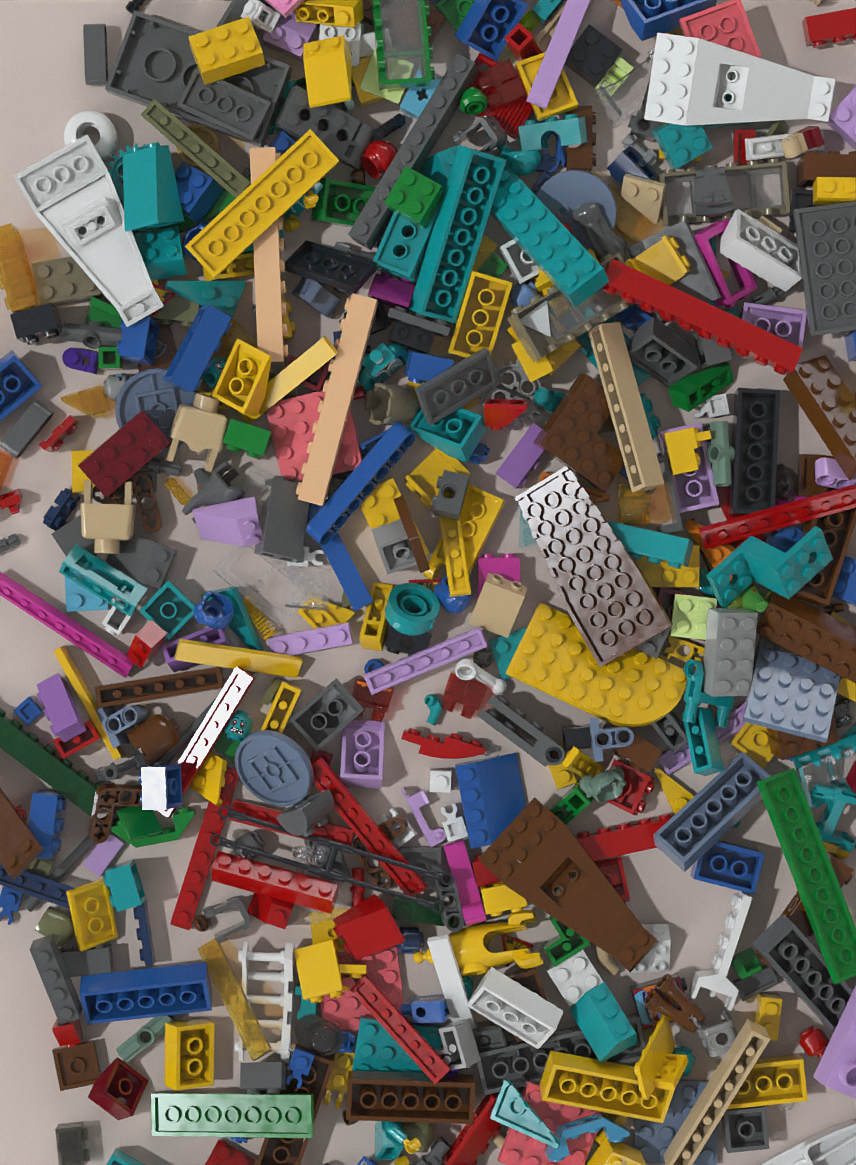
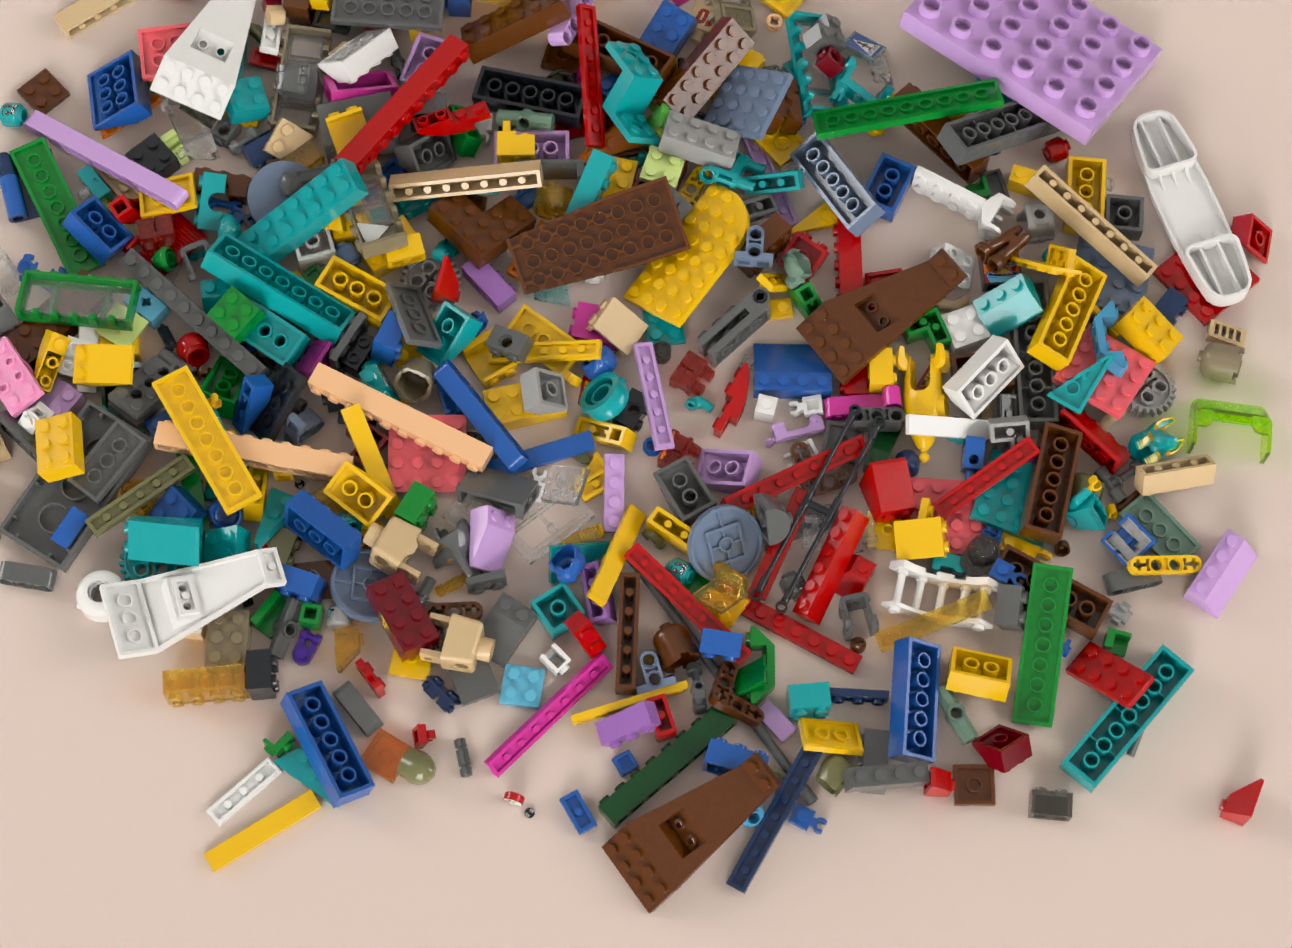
camera: 80 degrees left, 20 degrees down
(103, 580) = (516, 660): teal brick -> none
(150, 84) = (69, 527): none -> blue tile
(182, 522) = (493, 580): none -> dark grey plate
(219, 776) = (725, 590): none -> clear yellow bracket
(329, 237) = (253, 398): none -> blue slope
(357, 891) = (851, 499): red pin -> none
(412, 534) = (534, 368): reddish brown beam -> none
(496, 685) = (673, 358): white piece -> none
(576, 736) = (748, 281): black brick -> none
(696, 372) = (450, 123): none -> red slope

